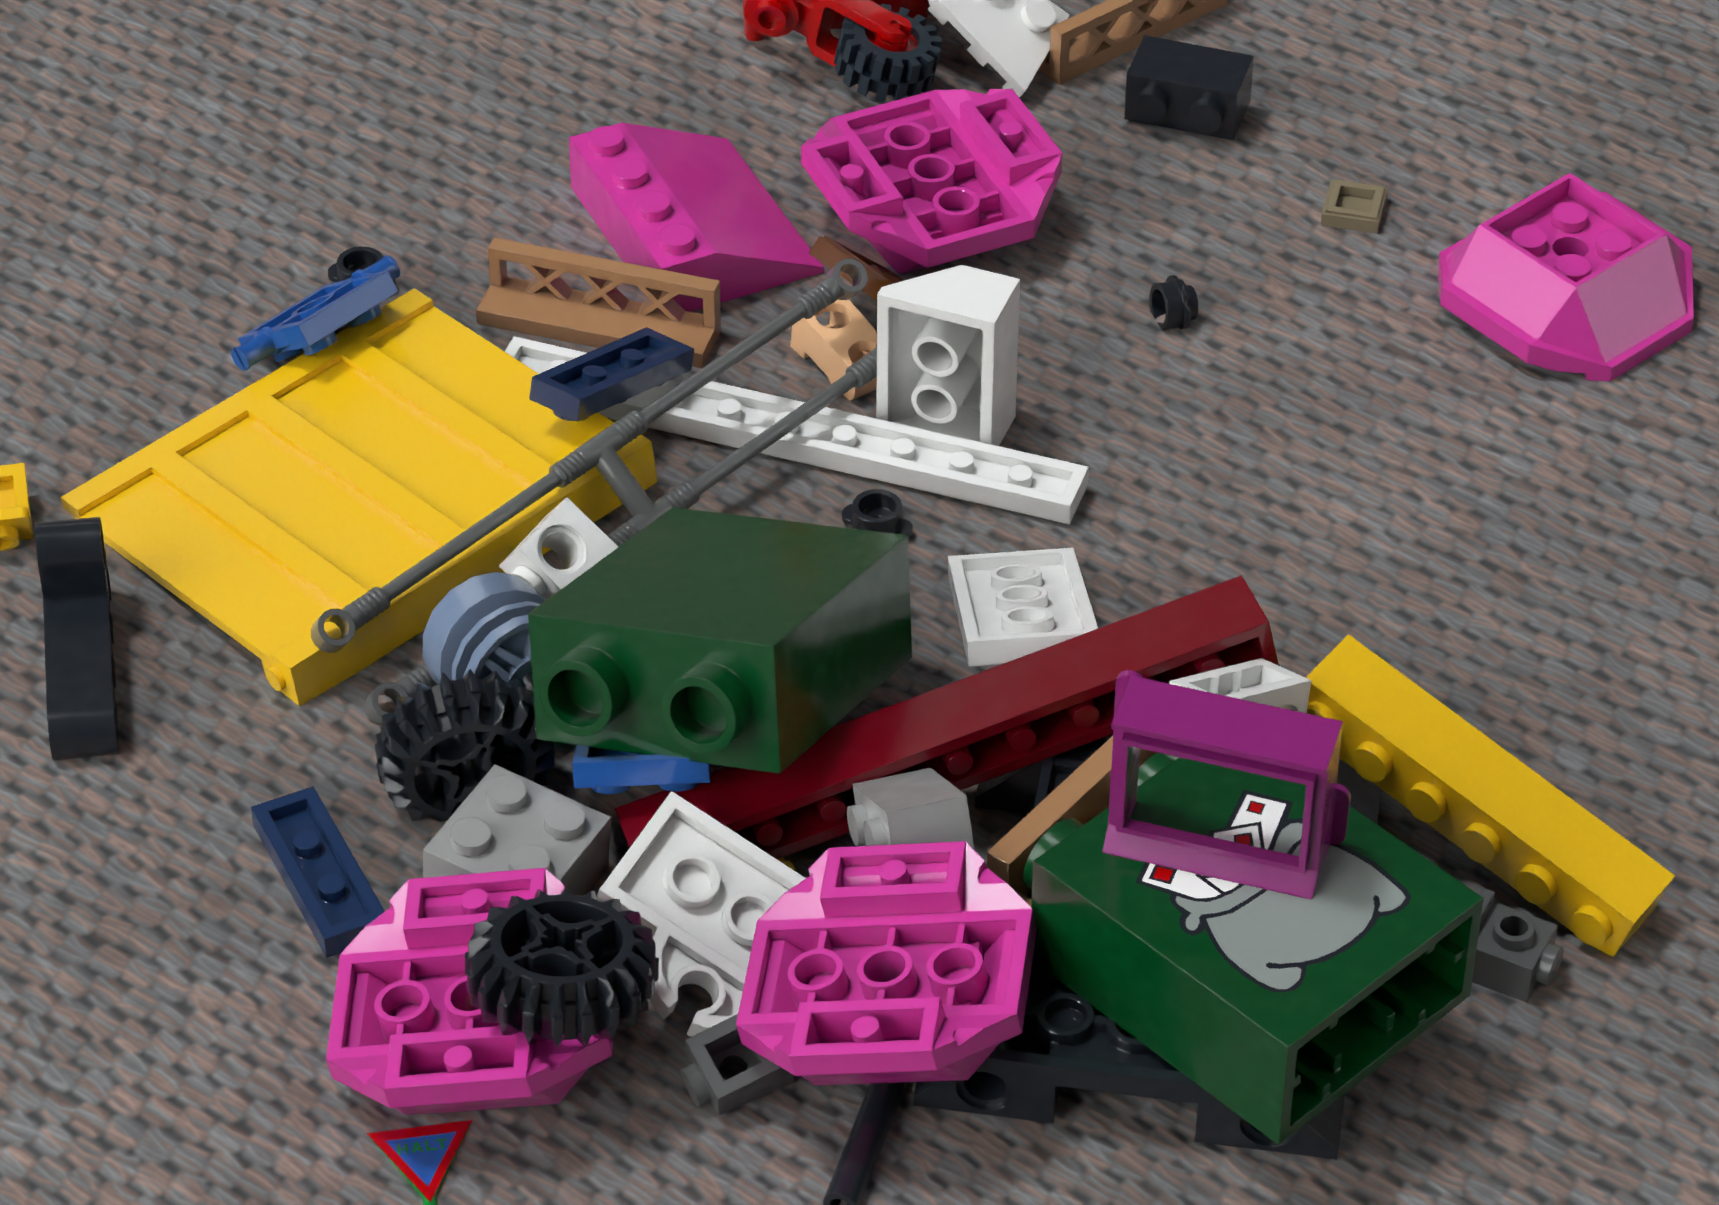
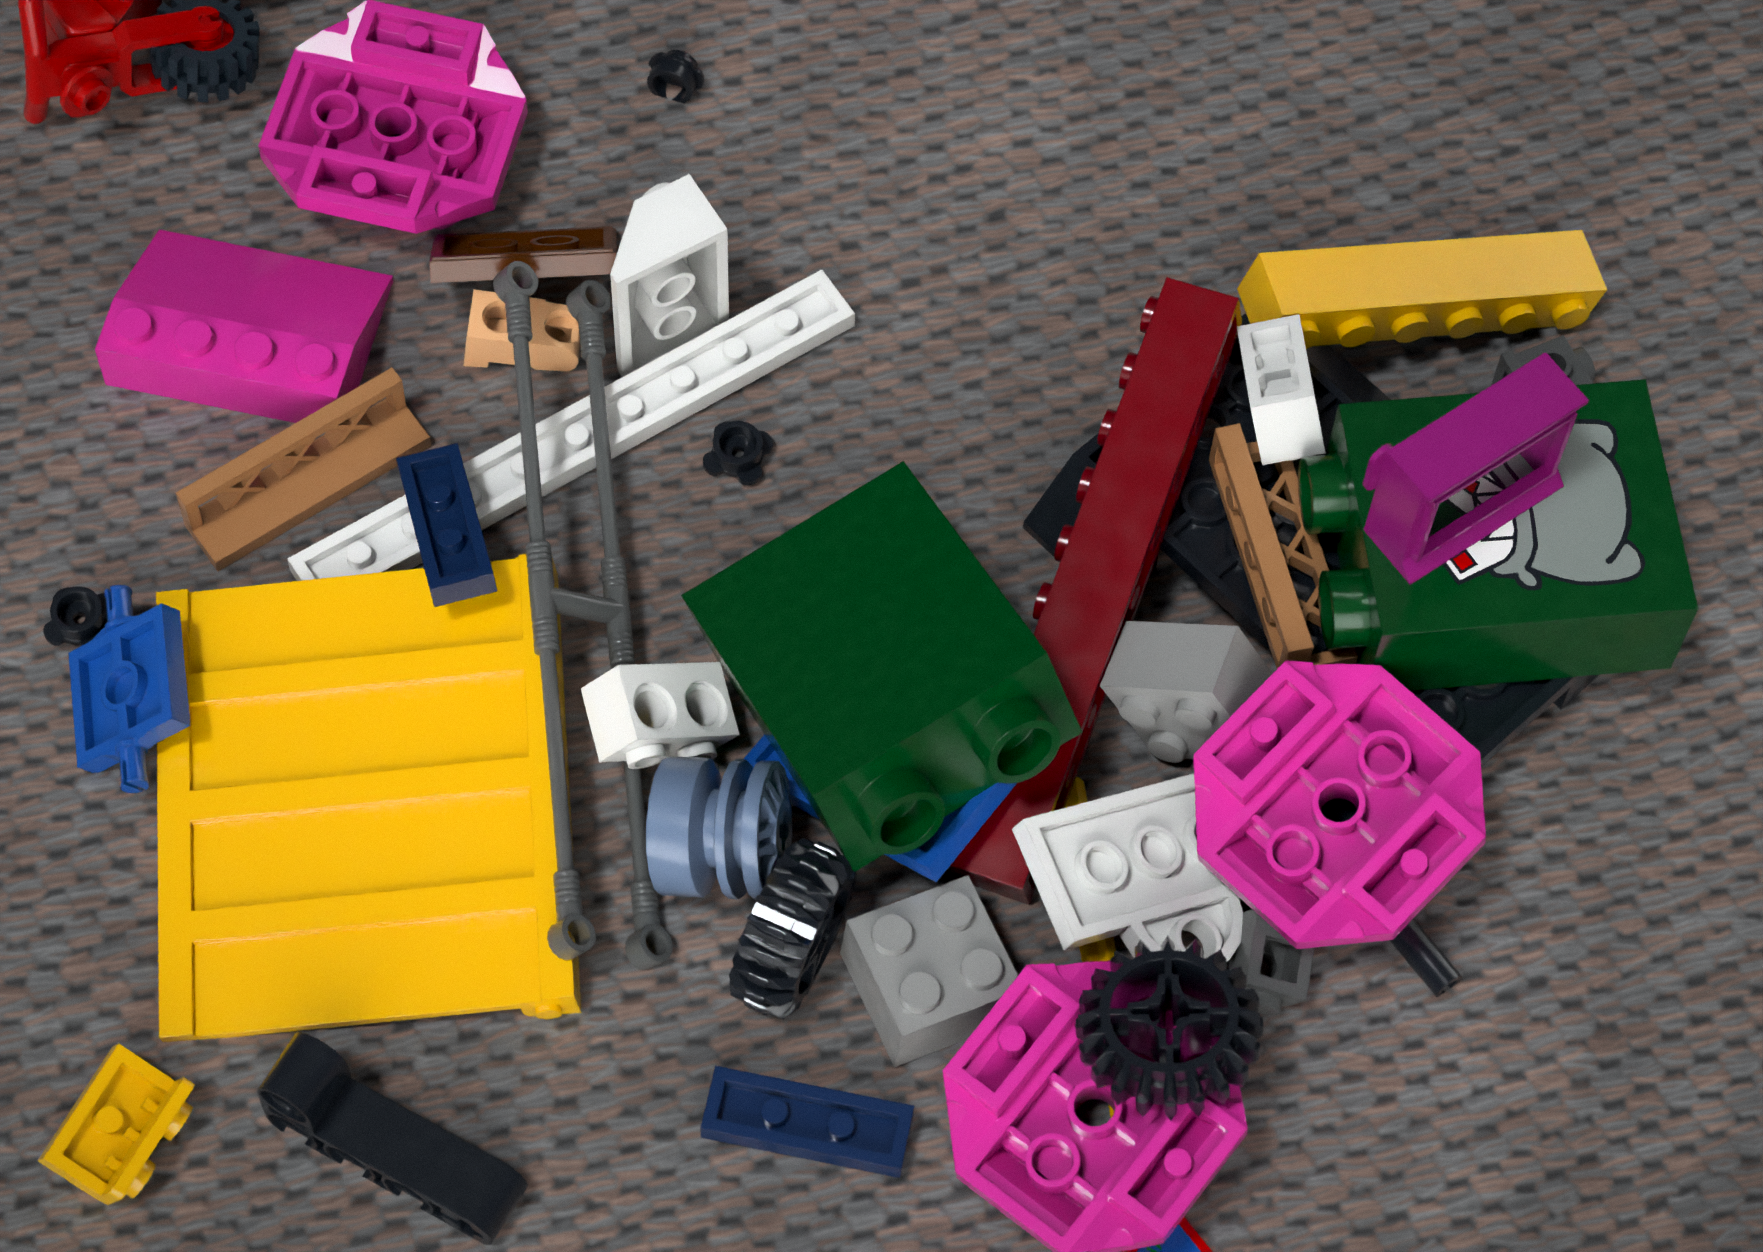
camera: 55 degrees left, 20 degrees up
(1018, 603) = (967, 429): white plate -> none

